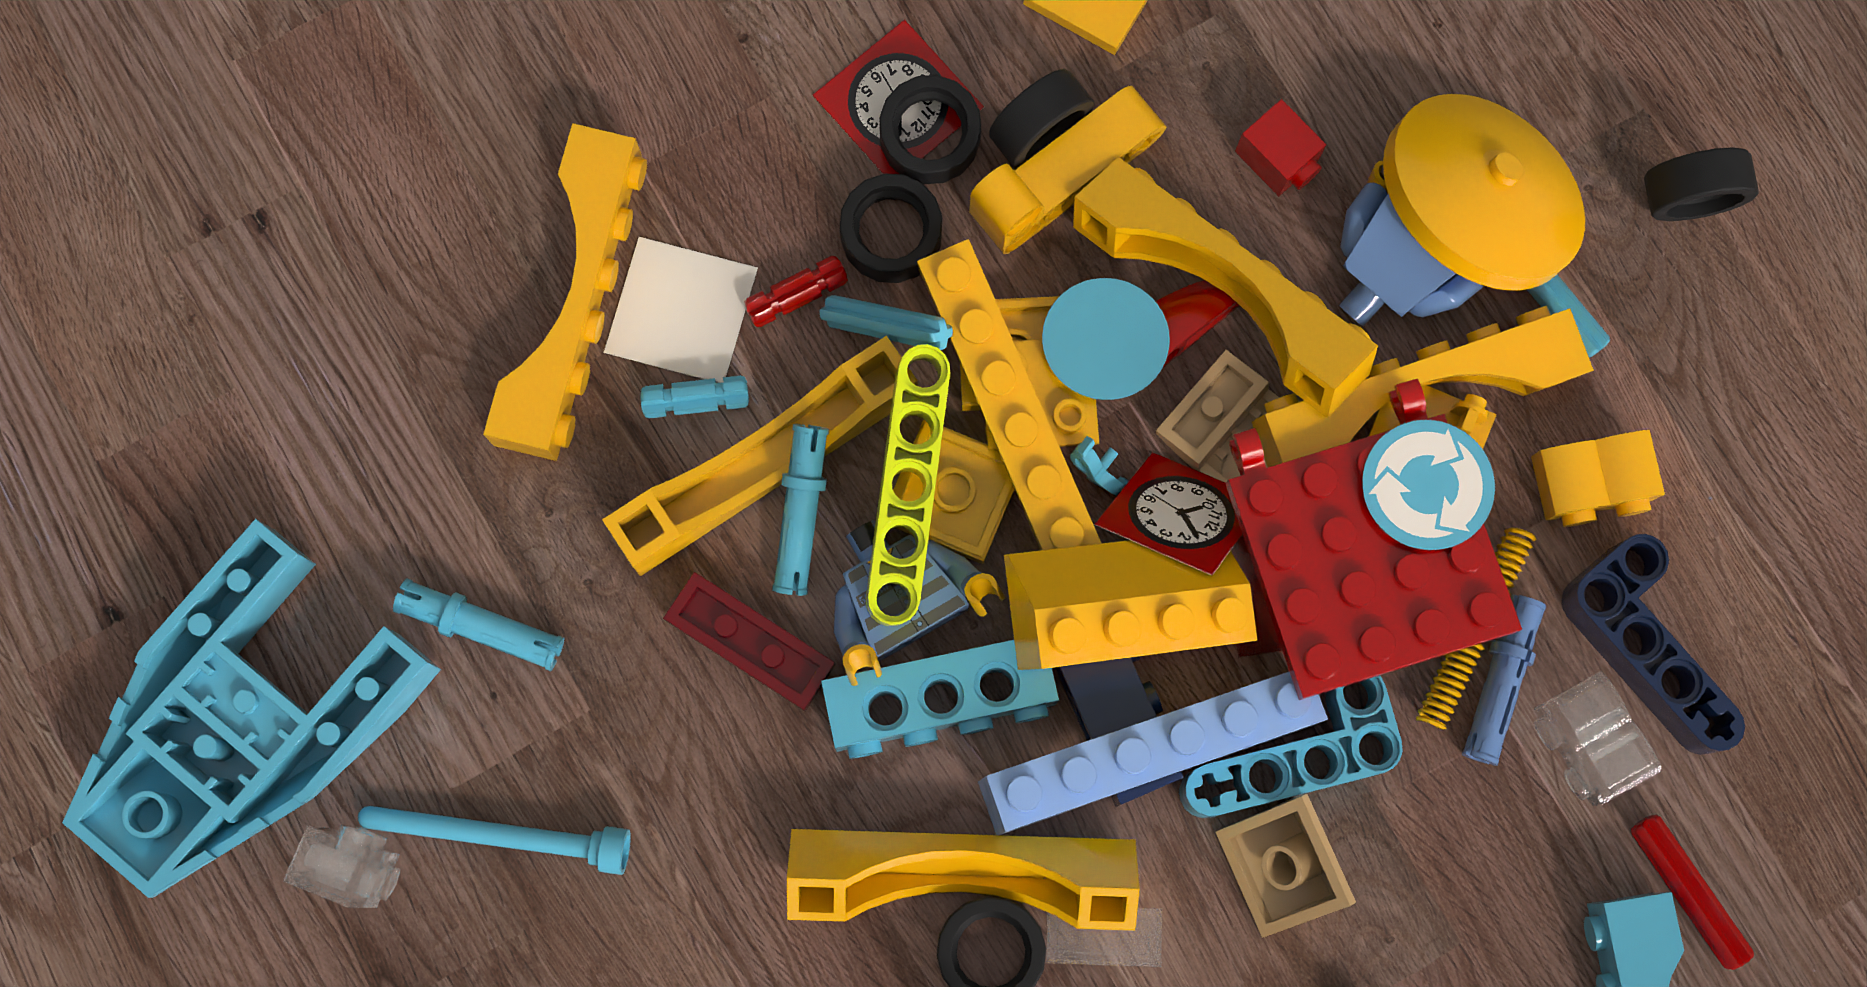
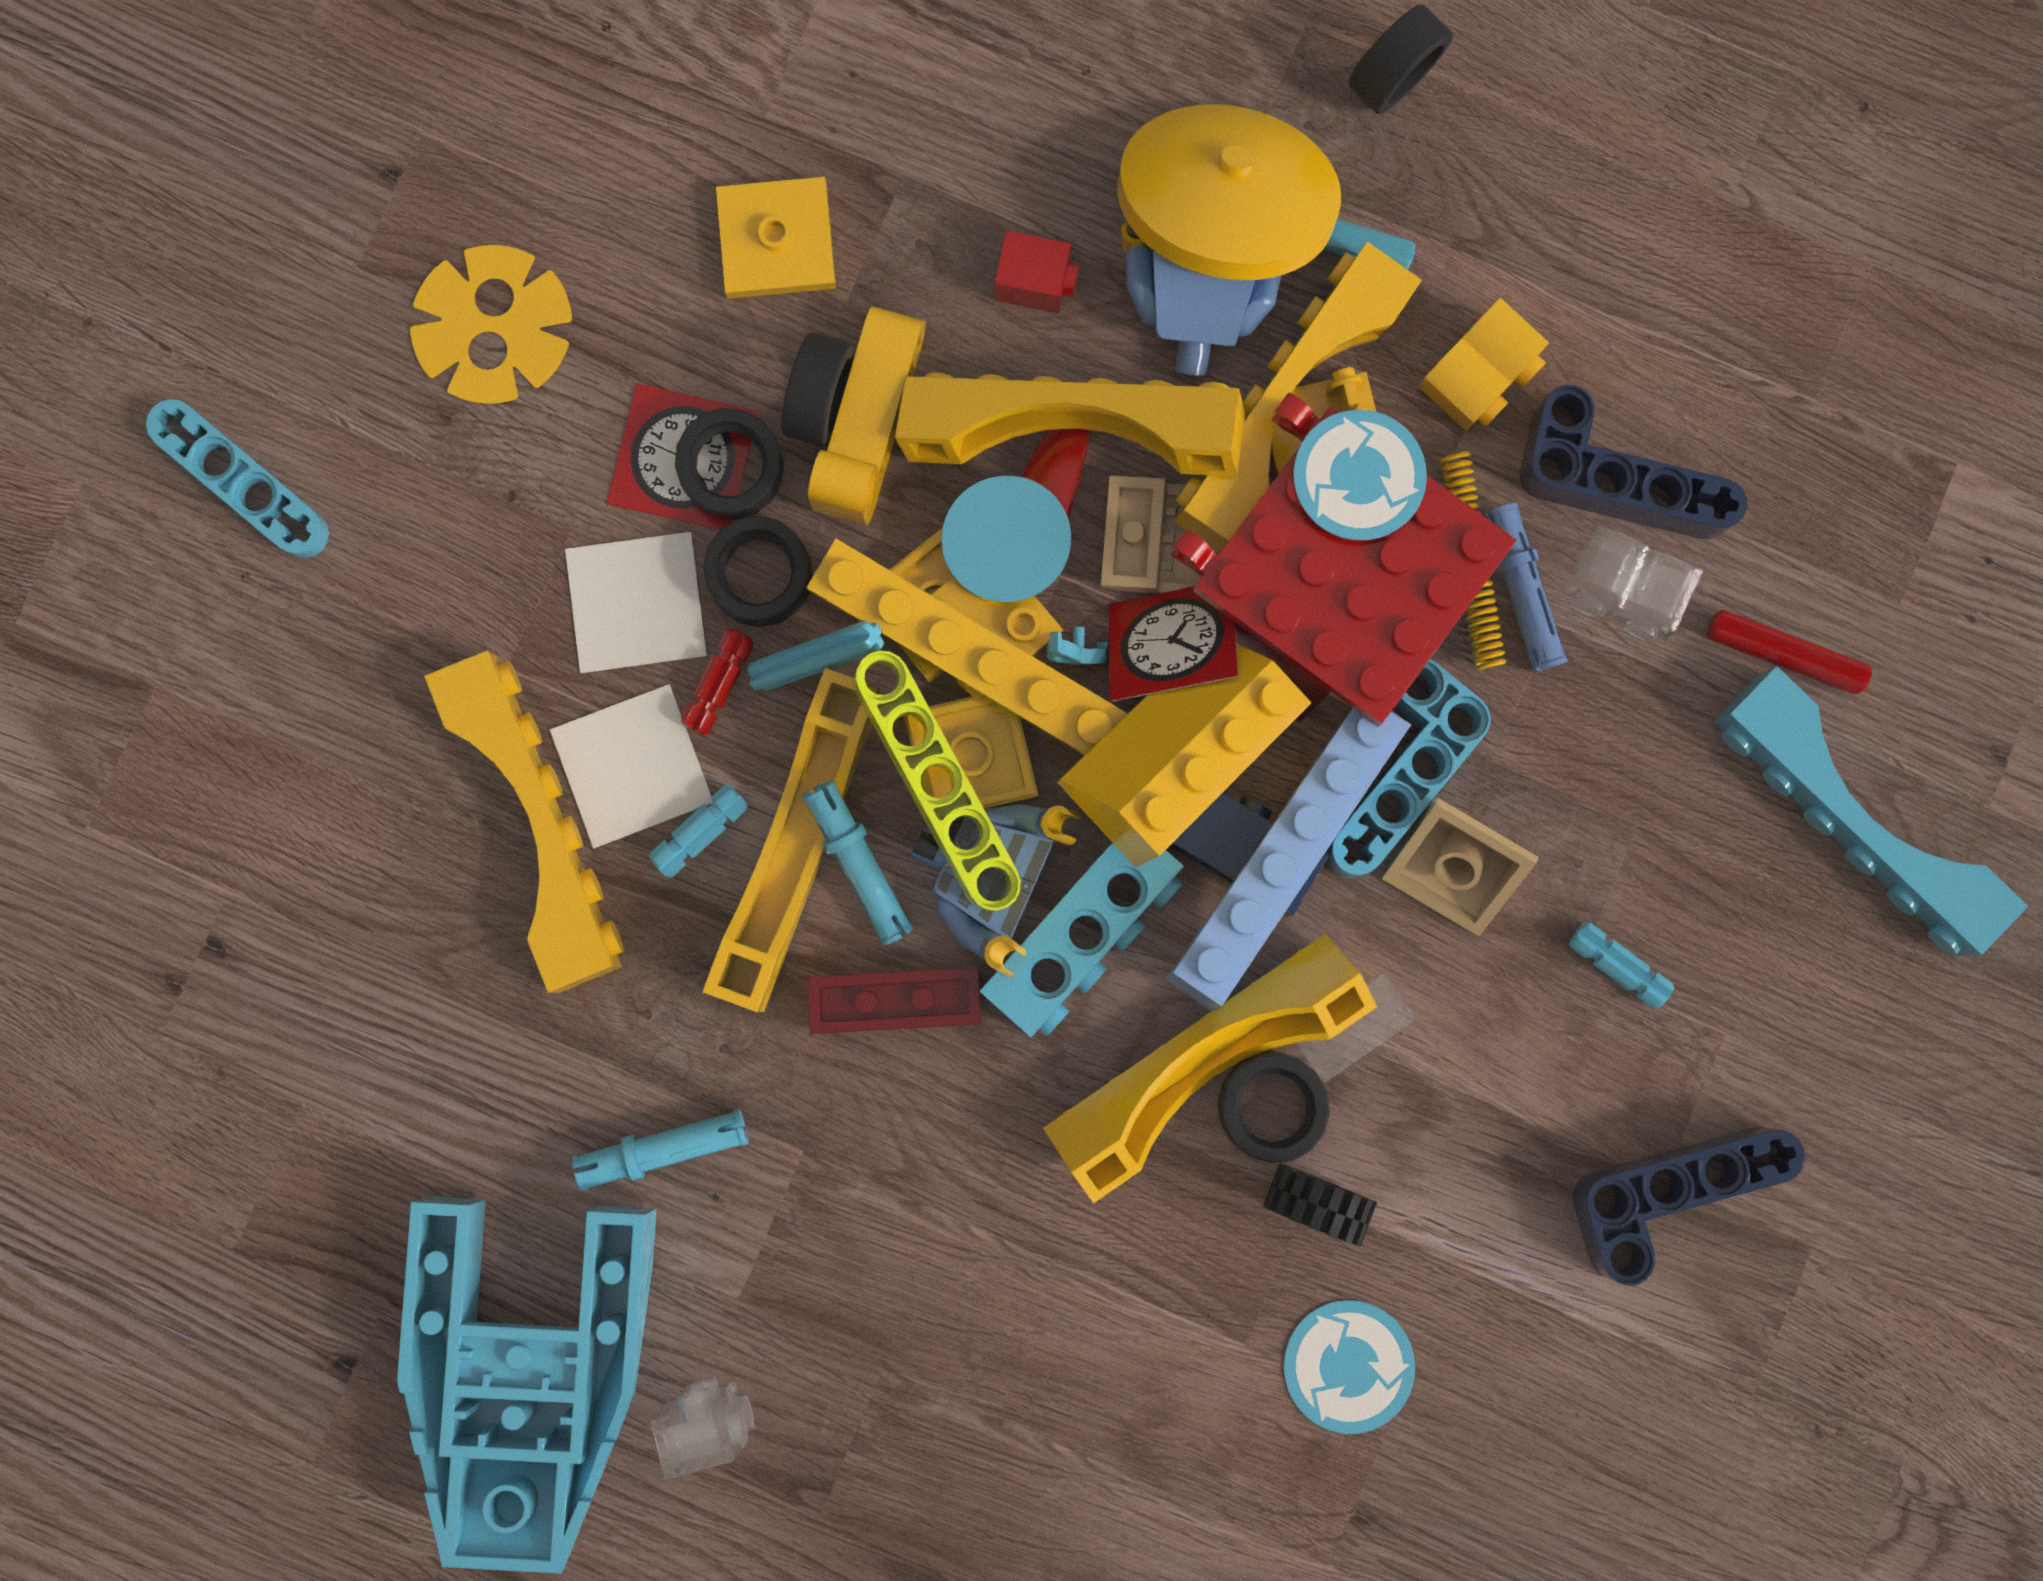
camera: 35 degrees left, 5 degrees up
(604, 848) = (901, 1255): medium azure piece -> none
(778, 186) = (635, 602): none -> white sticker

